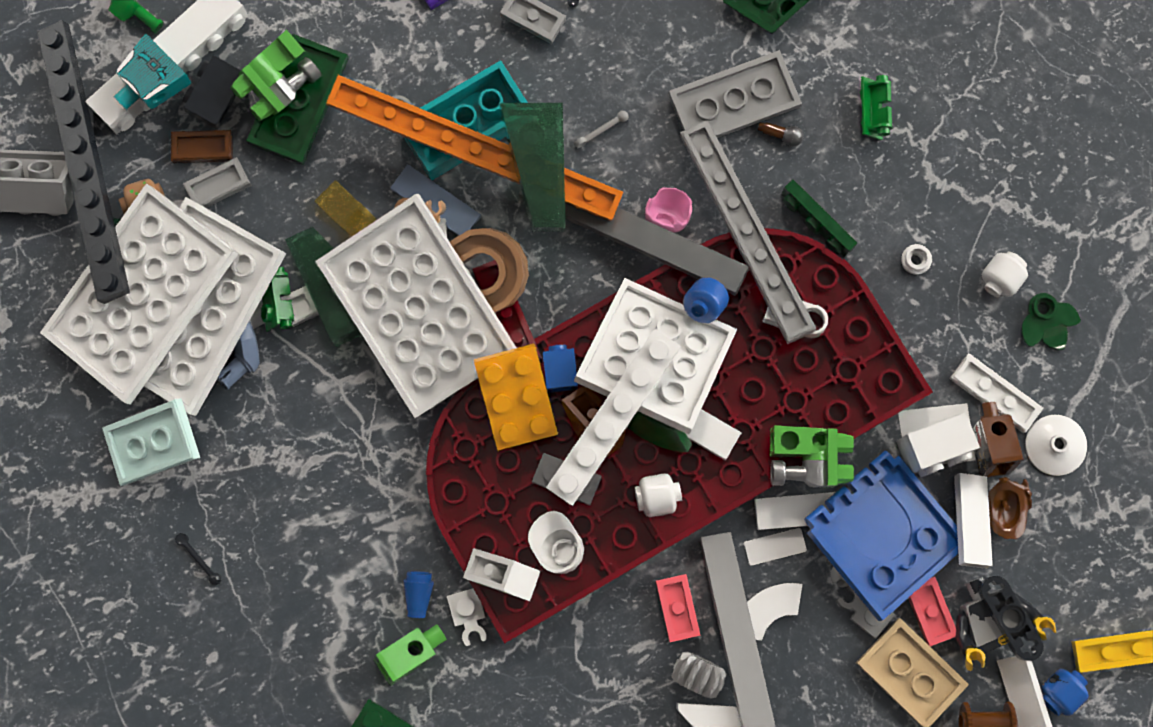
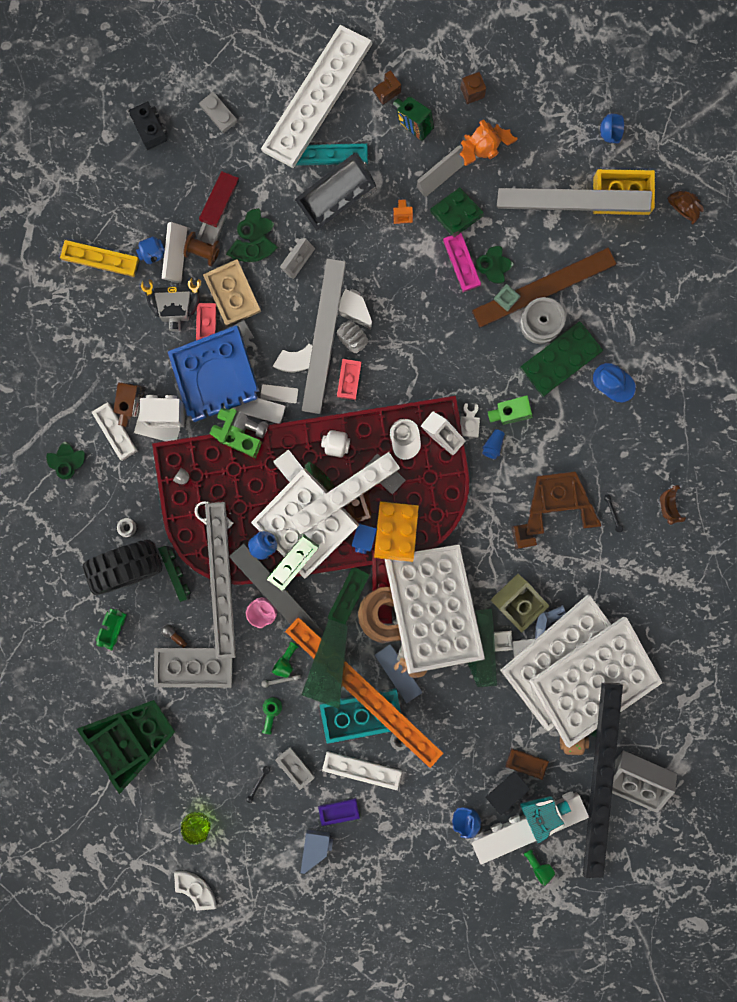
camera: 155 degrees left, 5 degrees up
(119, 613) = (668, 506): none -> reddish brown helmet
(151, 442) = (618, 589): light aqua tile -> none
(217, 183) = (525, 736): light grey tile -> none
(257, 30) = (466, 822): none -> blue hair
(266, 80) = (473, 789): bright green hips -> none
(274, 310) = (517, 640): green hinge -> none
(292, 554) = (558, 494): none -> reddish brown wing
(293, 368) = (520, 602): none -> olive slope
(296, 125) = (458, 770): dark green plate -> none
(322, 470) = (520, 537): none -> reddish brown panel
(344, 209) = (454, 688): clear yellow slope -> none
(436, 49) = (362, 770): none -> white tile
(550, 282) = (348, 596): none -> dark green plate
(596, 95) = (271, 714): none -> green bar
(607, 148) = (283, 667): none -> green bar
(650, 291) = (293, 562): none -> plate
(867, 357) = (182, 477): none -> light grey hinge
(896, 190) = (122, 567): none -> black tyre
(973, 520) = (160, 363): white tile -> none
(1005, 274) = (79, 497): white head -> none
(1009, 507) = (137, 363): reddish brown hat -> none
(1024, 621) = (167, 285): black beam -> none
(1041, 447) = (101, 393): white dish -> none

